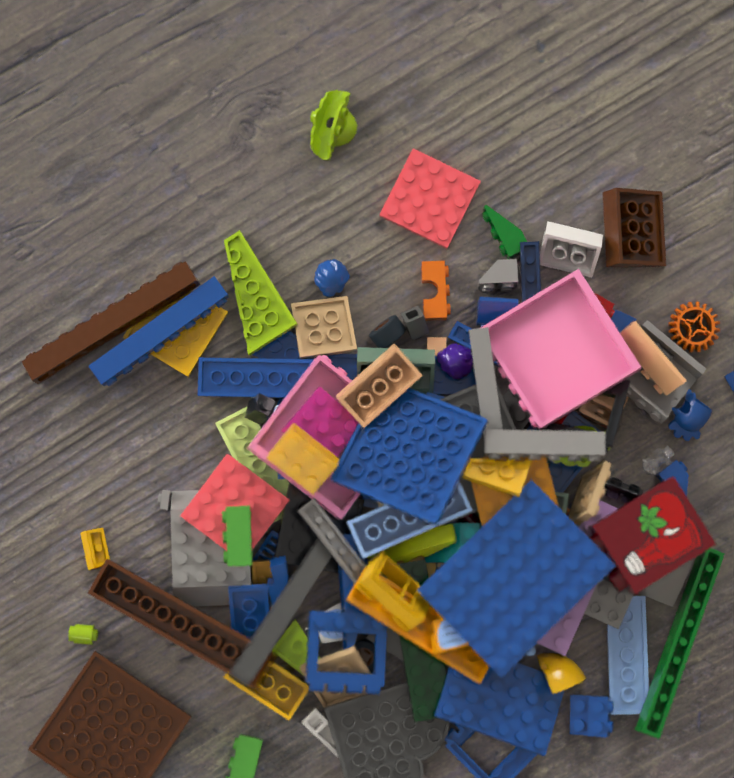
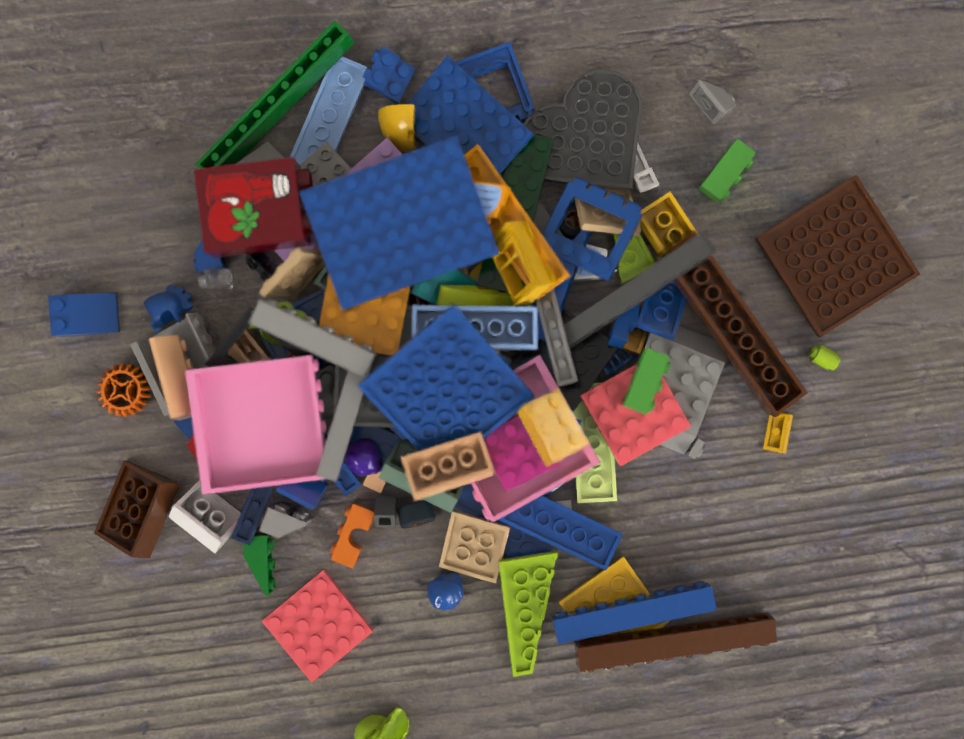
camera: 155 degrees left, 5 degrees up
(260, 409) = (569, 495): black brick -> none
(500, 475) = (369, 326): yellow wing -> none

